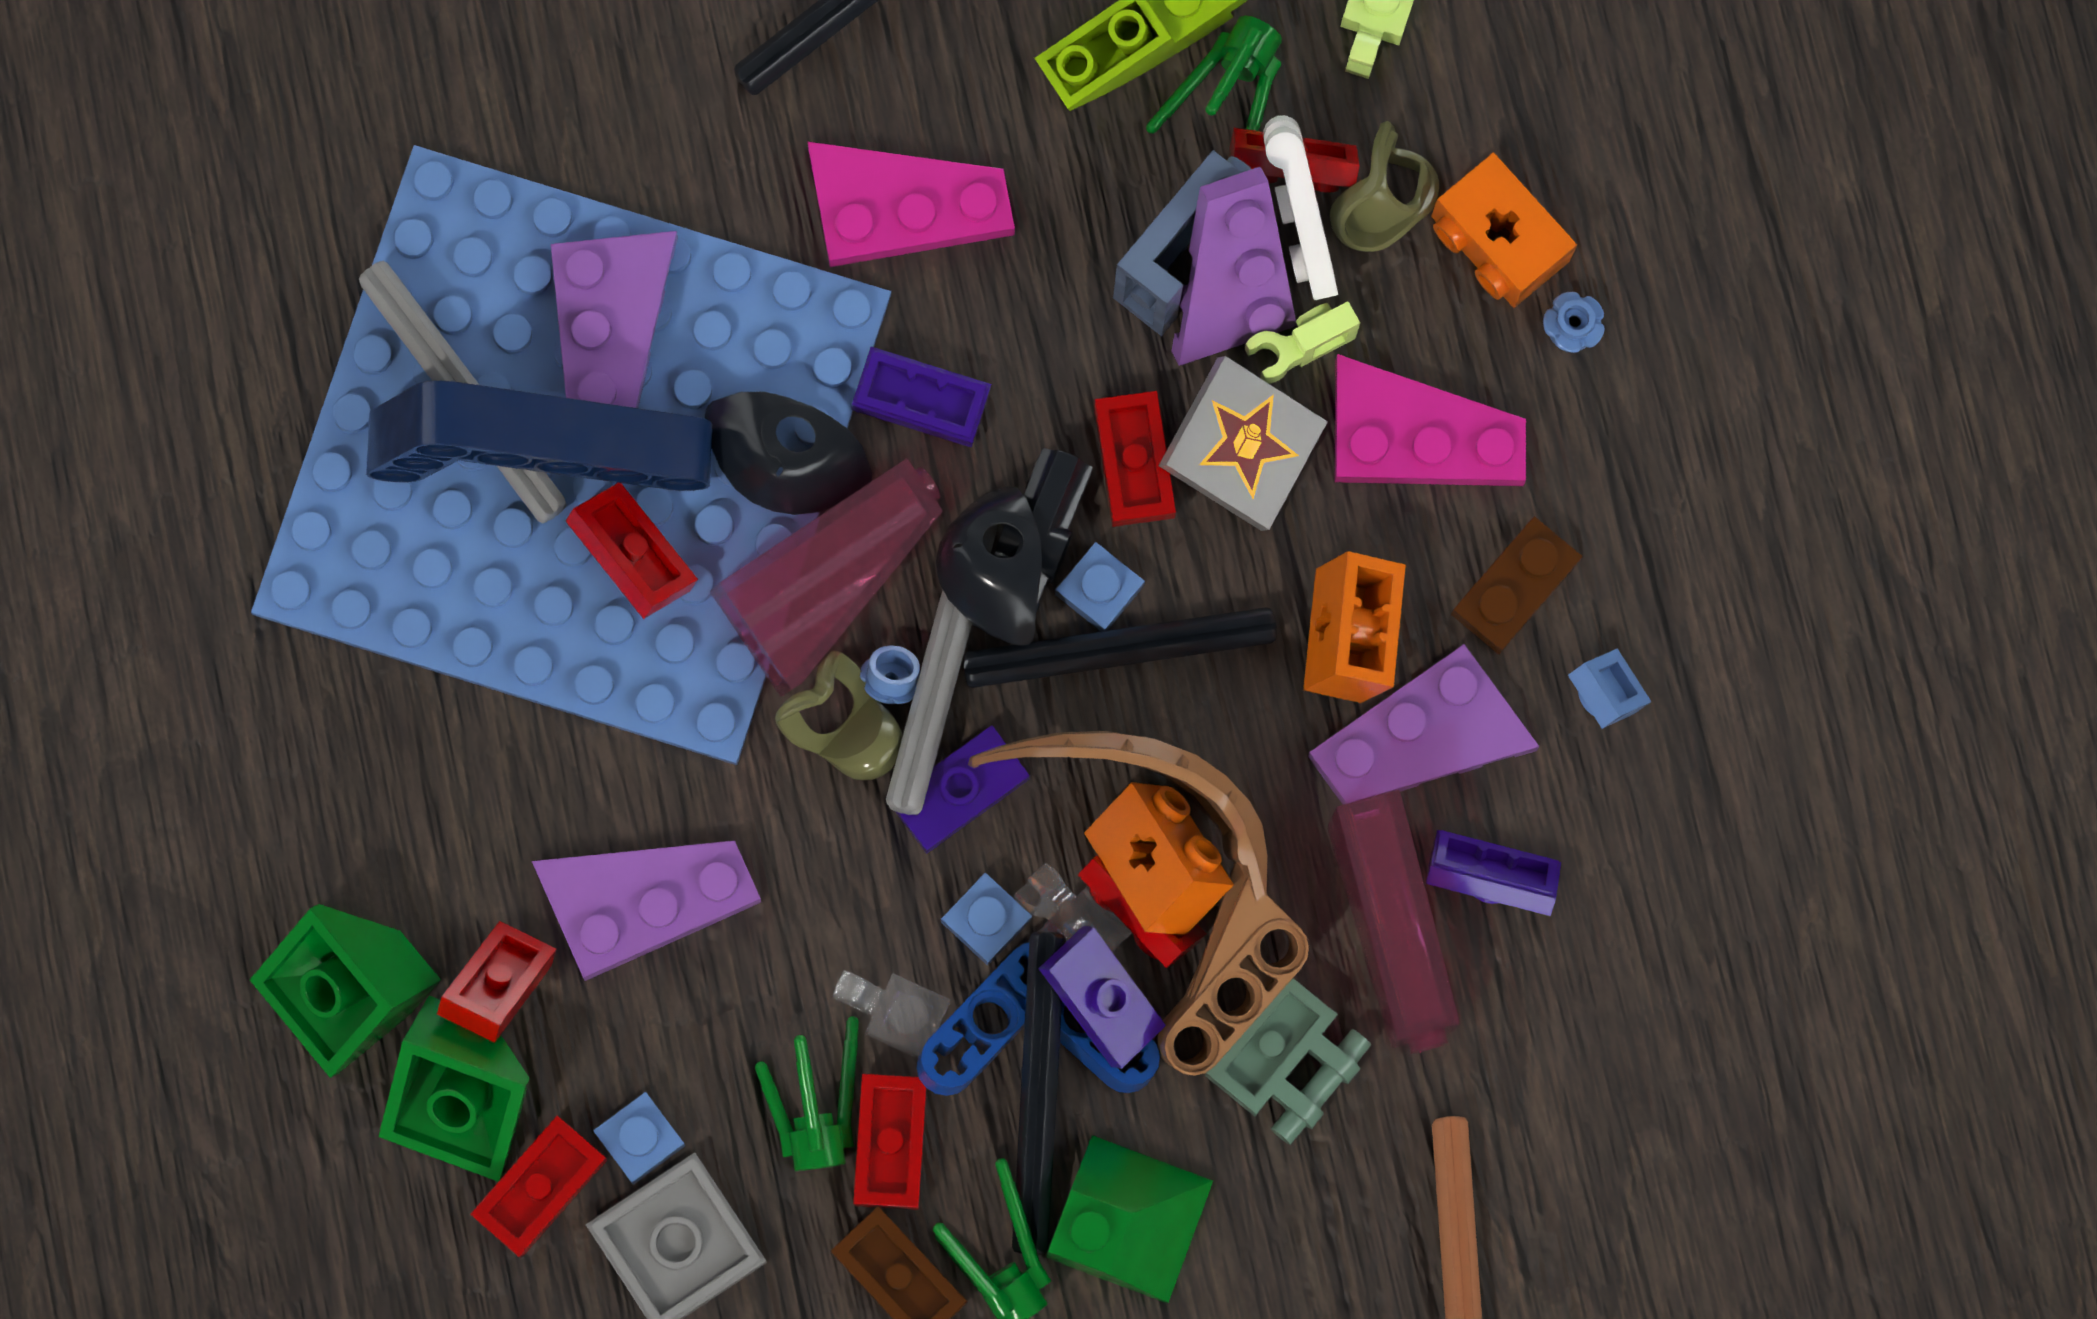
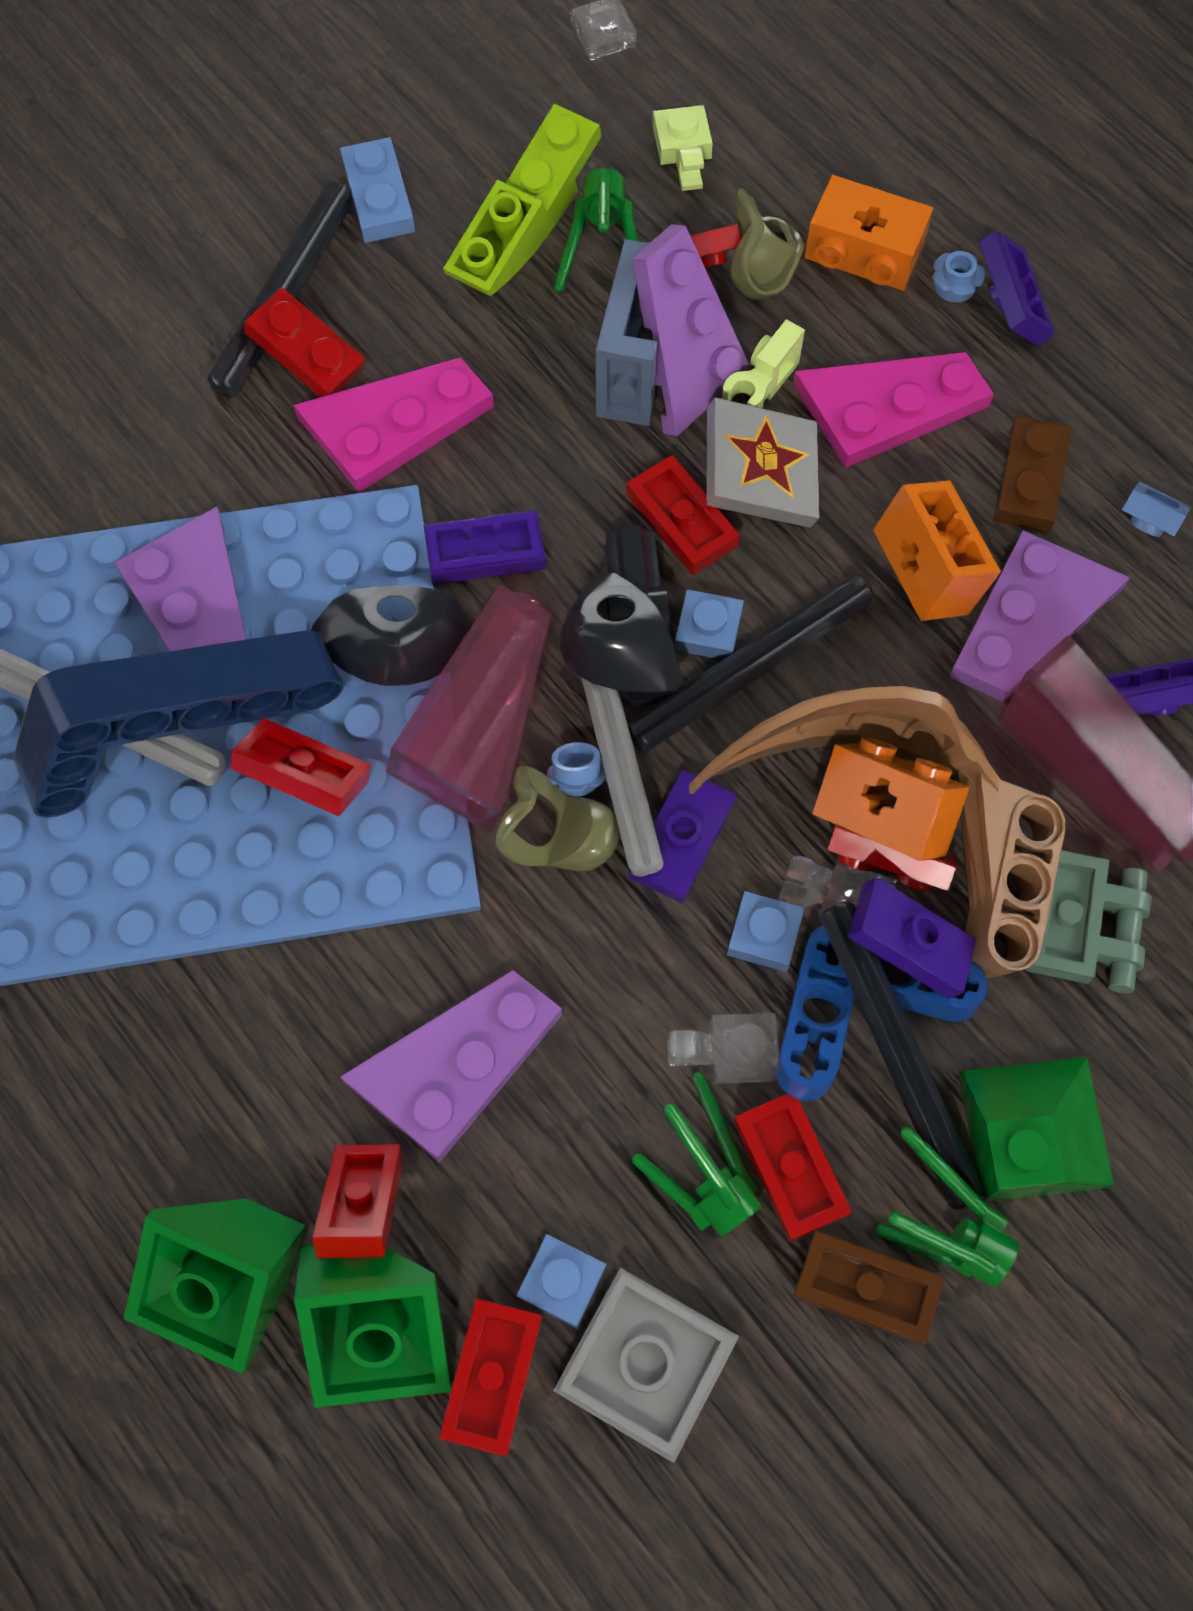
camera: 20 degrees left, 10 degrees down
(850, 77) = (303, 344): none -> red plate
(1299, 205) = (739, 299): white plate -> none
(1621, 372) = (1016, 288): none -> dark purple plate

